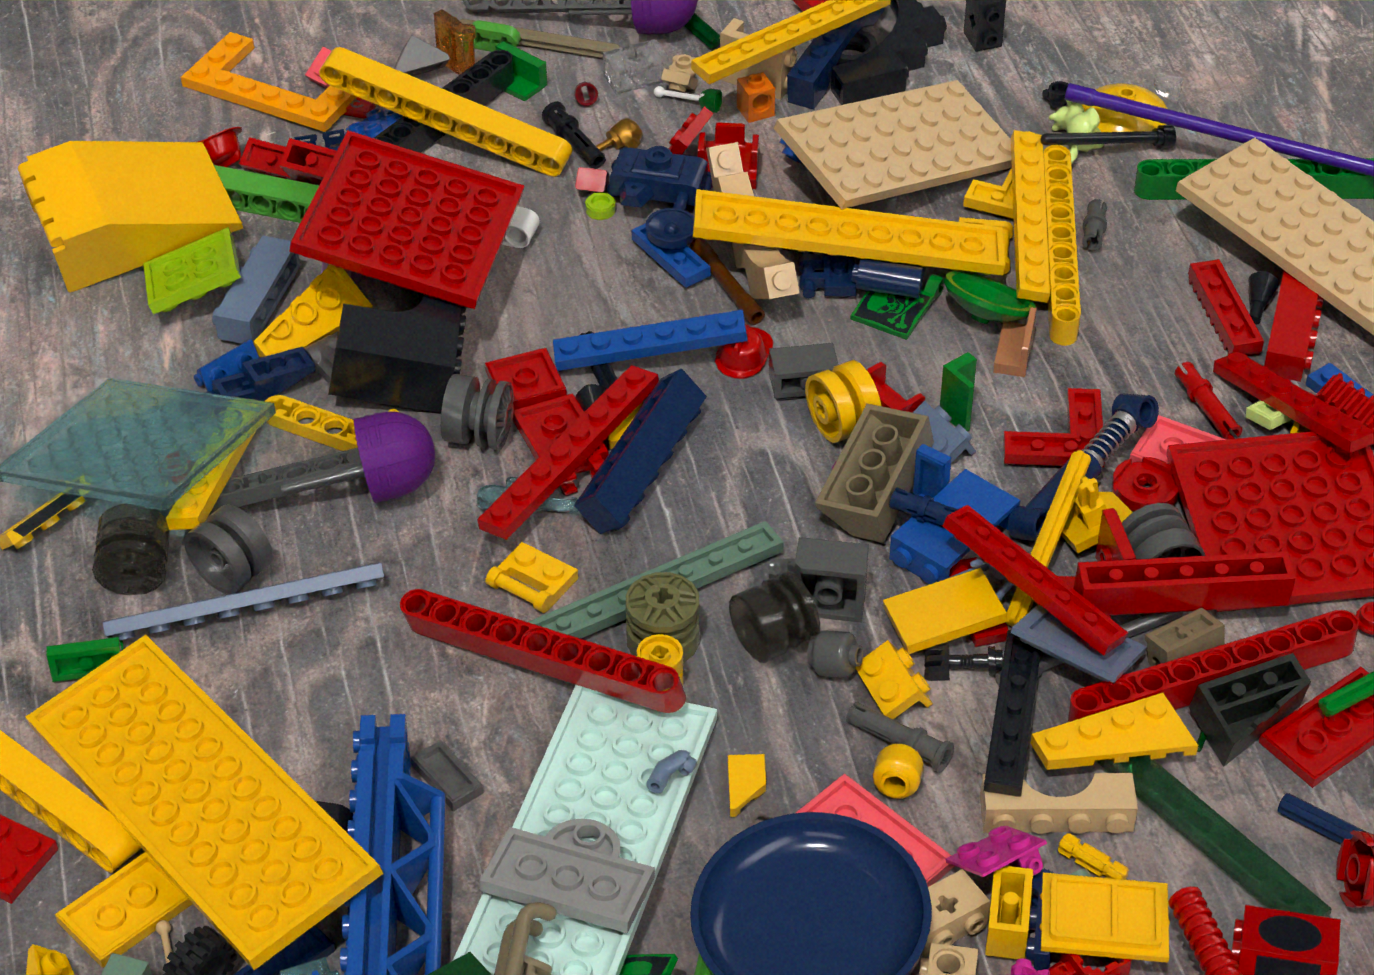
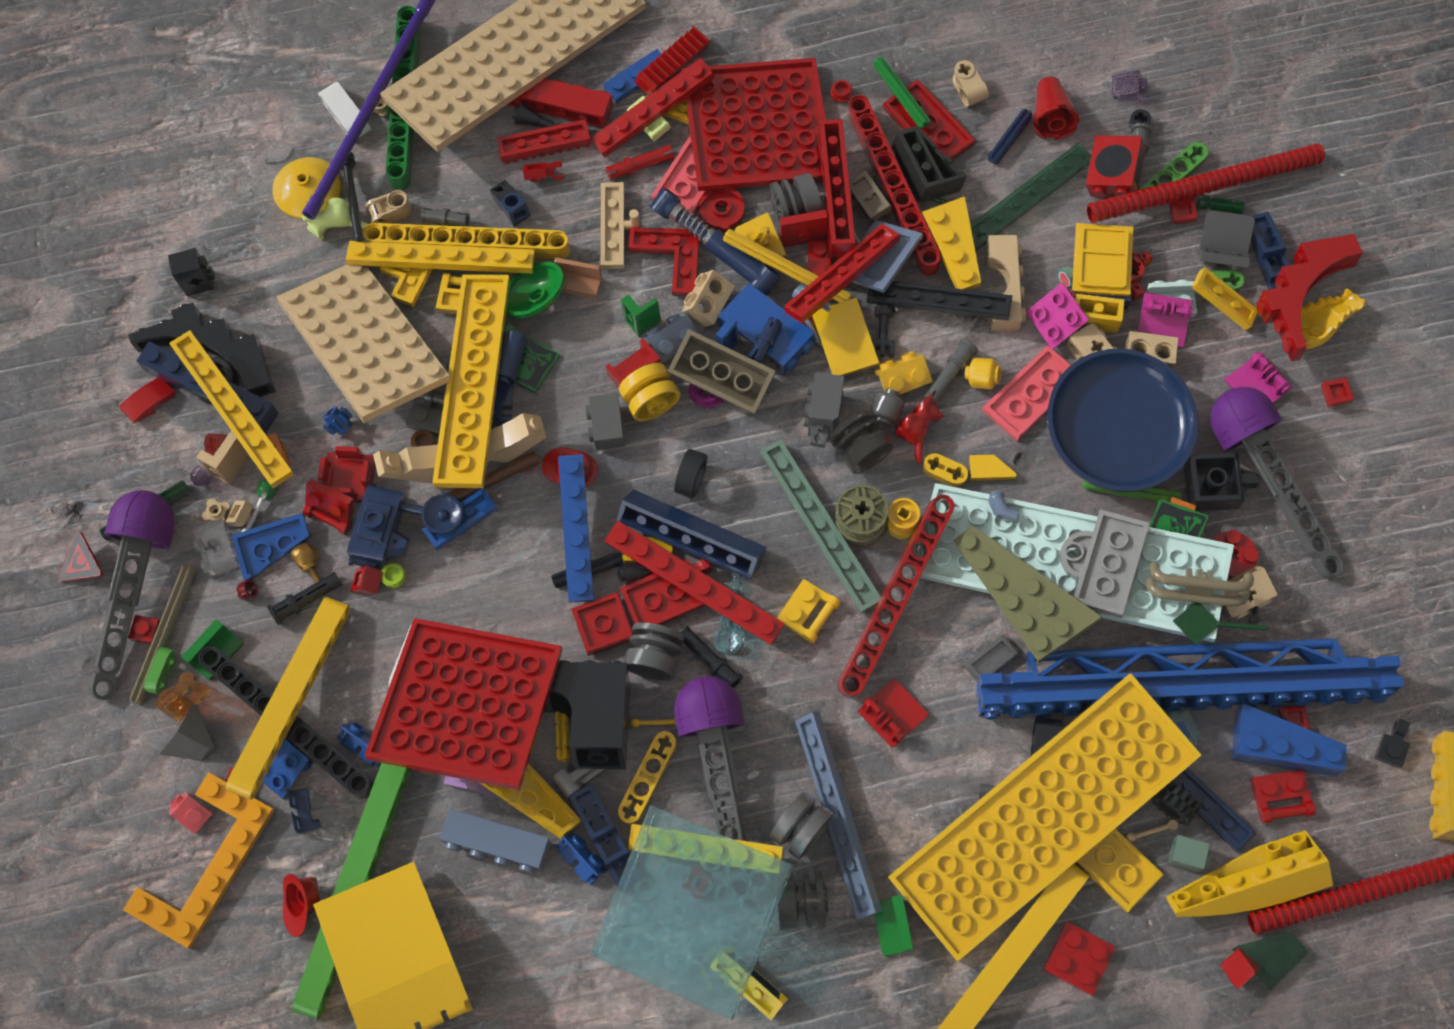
camera: 85 degrees left, 25 degrees up
(191, 271) = (475, 896): lime plate -> none
(294, 162) = (338, 815): red bracket -> none
(378, 661) = (892, 712): none -> red hinge
(458, 484) = (717, 666): none -> black pin
(525, 781) = (1034, 605): none -> olive wing
(545, 23) = (143, 629): none -> red plate
(643, 103) = (268, 543): none -> blue wing
(732, 430) = (690, 473): none -> black tyre
(747, 731) = (946, 465): none -> yellow beam
(806, 687) = (915, 425): none -> red animal
(992, 466) = (711, 301): none -> tan brick
(1056, 94) = (281, 225): black plate -> none
(1091, 858) = (1042, 268): yellow axle -> none
(1098, 175) = (388, 208): none -> tan piece
(1104, 375) = (614, 225): none -> tan plate
(1122, 278) = (510, 202): none -> dark blue leg
(1177, 304) = (538, 171): none -> red plate
(1249, 117) = (341, 107): none -> white beam

